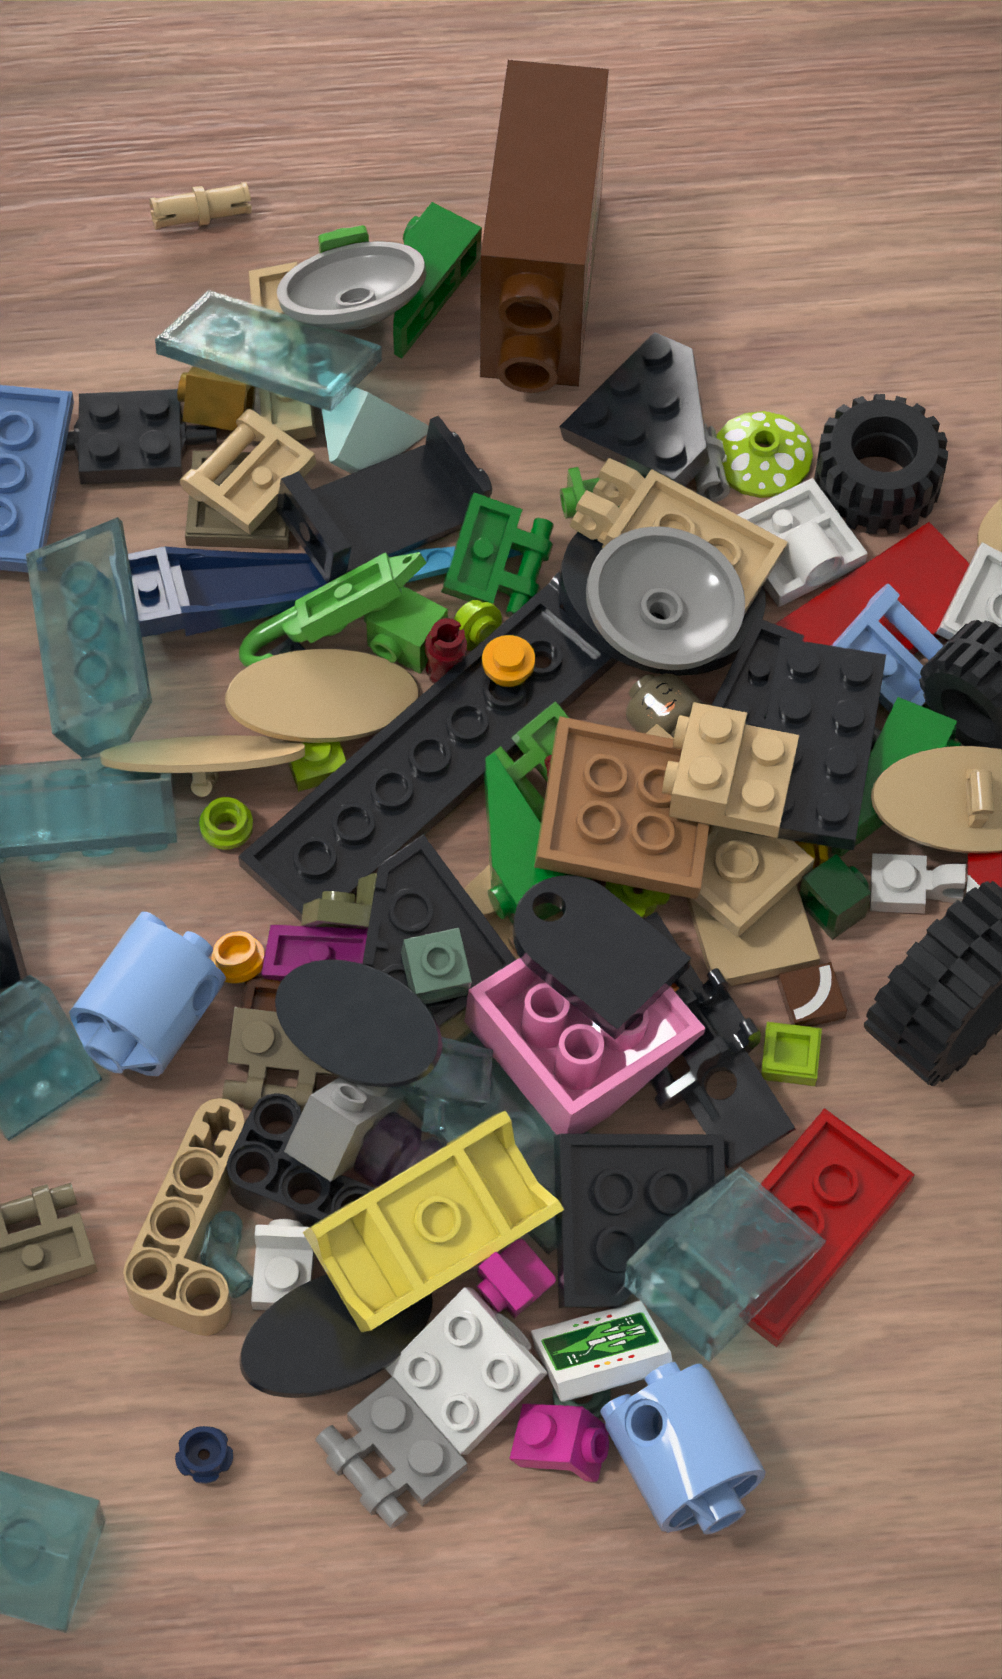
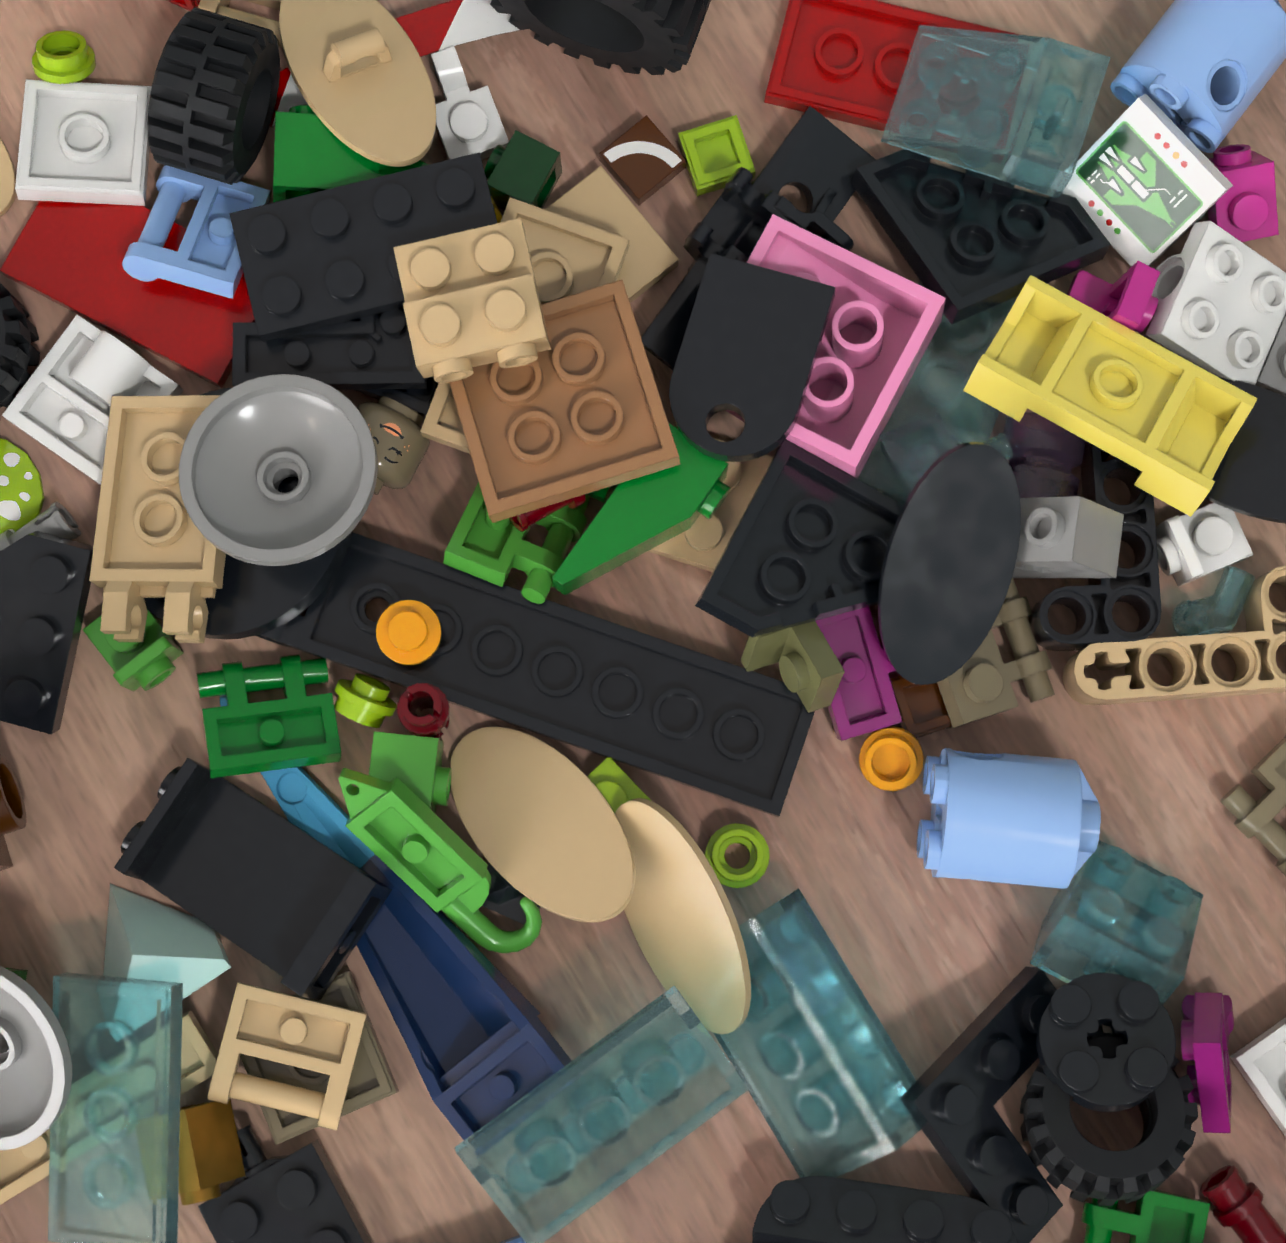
camera: 115 degrees left, 20 degrees up
(436, 966) = (850, 509): sand green brick -> none

